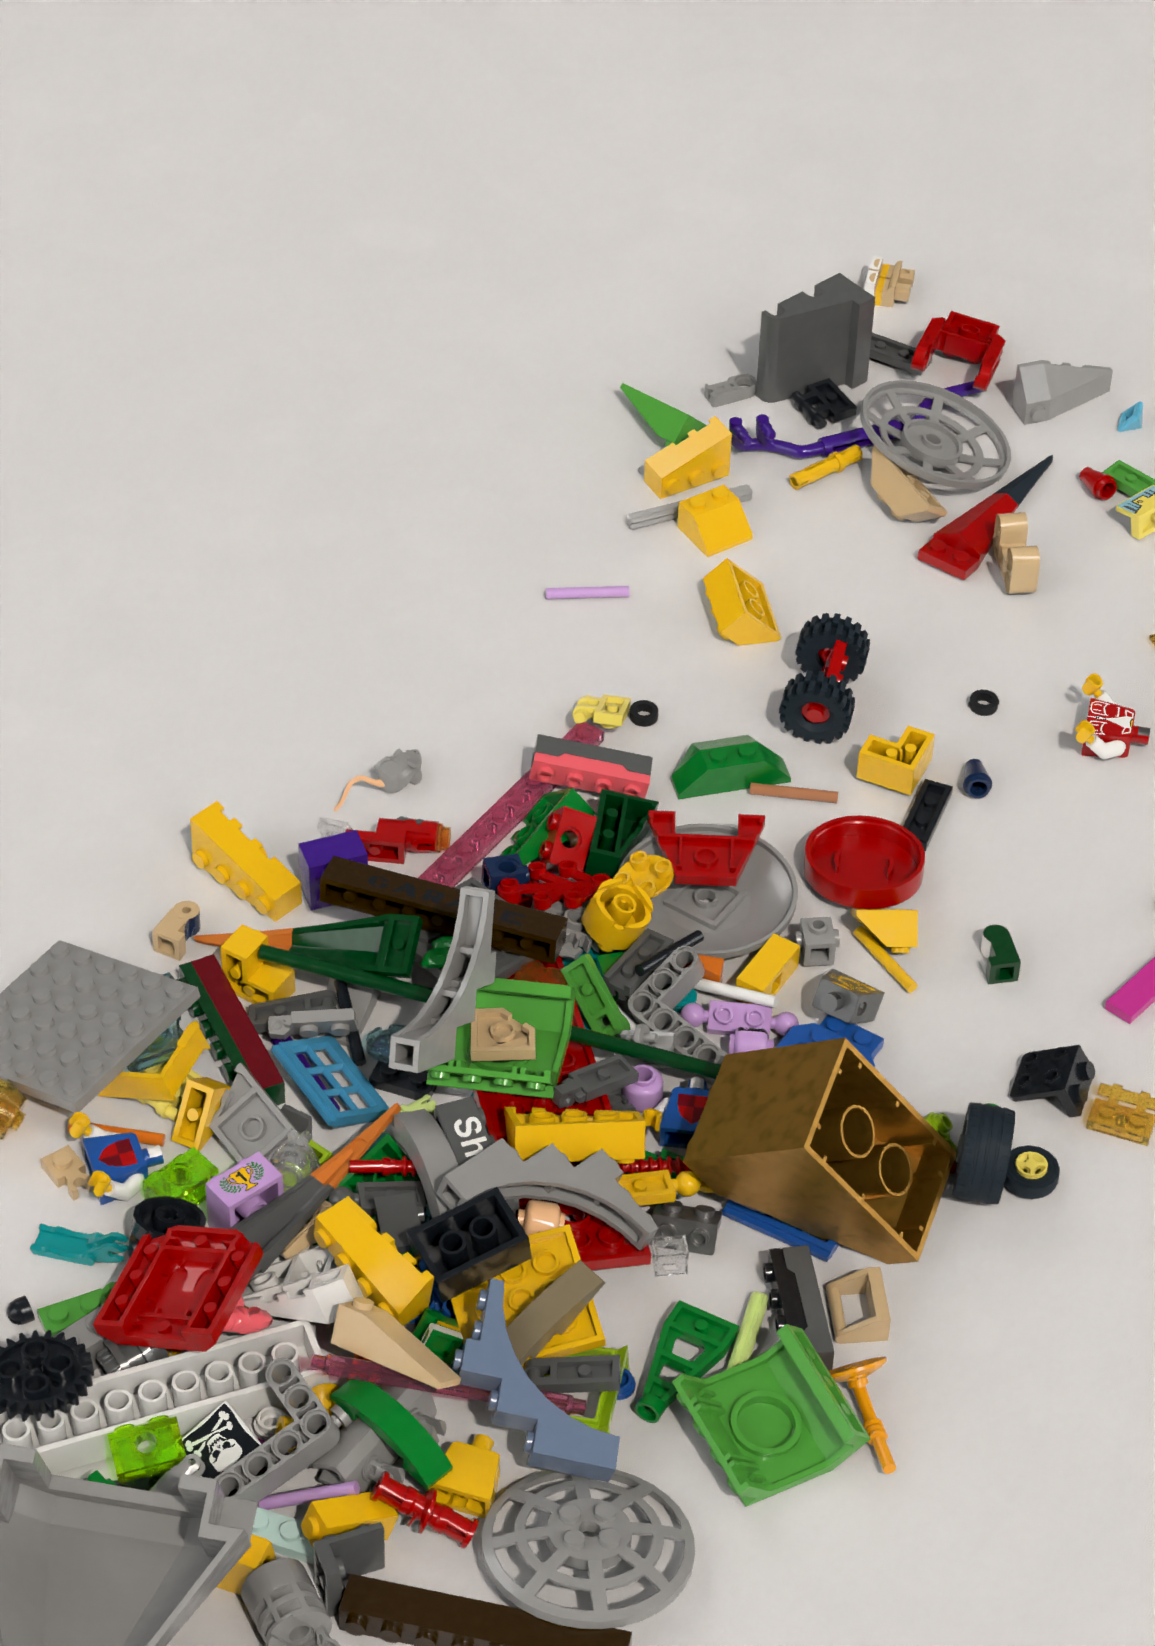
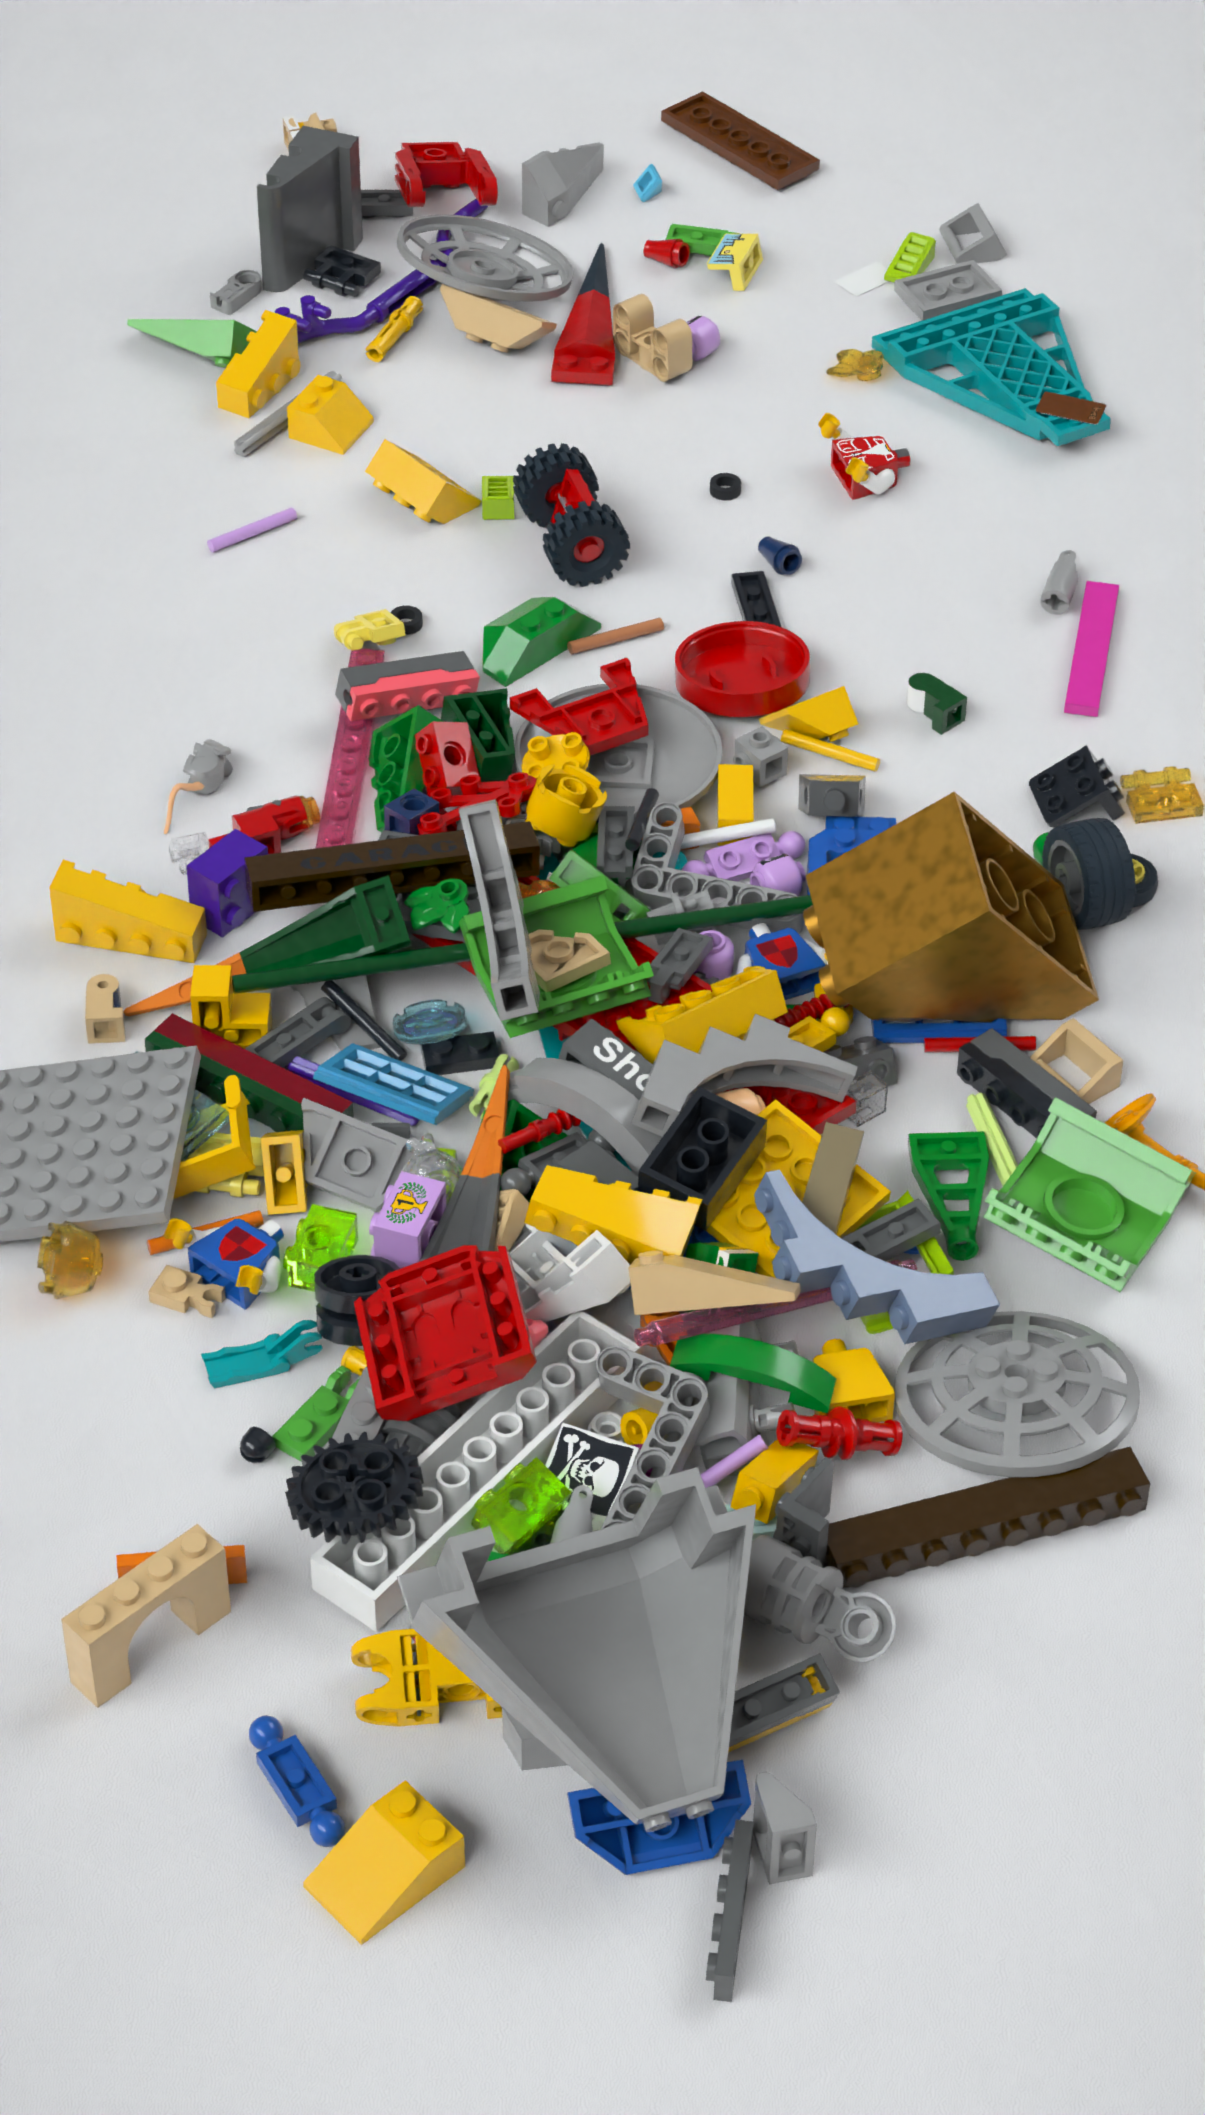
camera: 30 degrees left, 0 degrees up
(311, 1022) = (335, 1034): light grey hinge -> none
(786, 640) = (497, 497): none -> lime slope
(818, 1260) = (952, 1044): none -> red bar
(896, 764) = (698, 568): yellow brick -> none
(1059, 567) = (704, 337): none -> lavender head

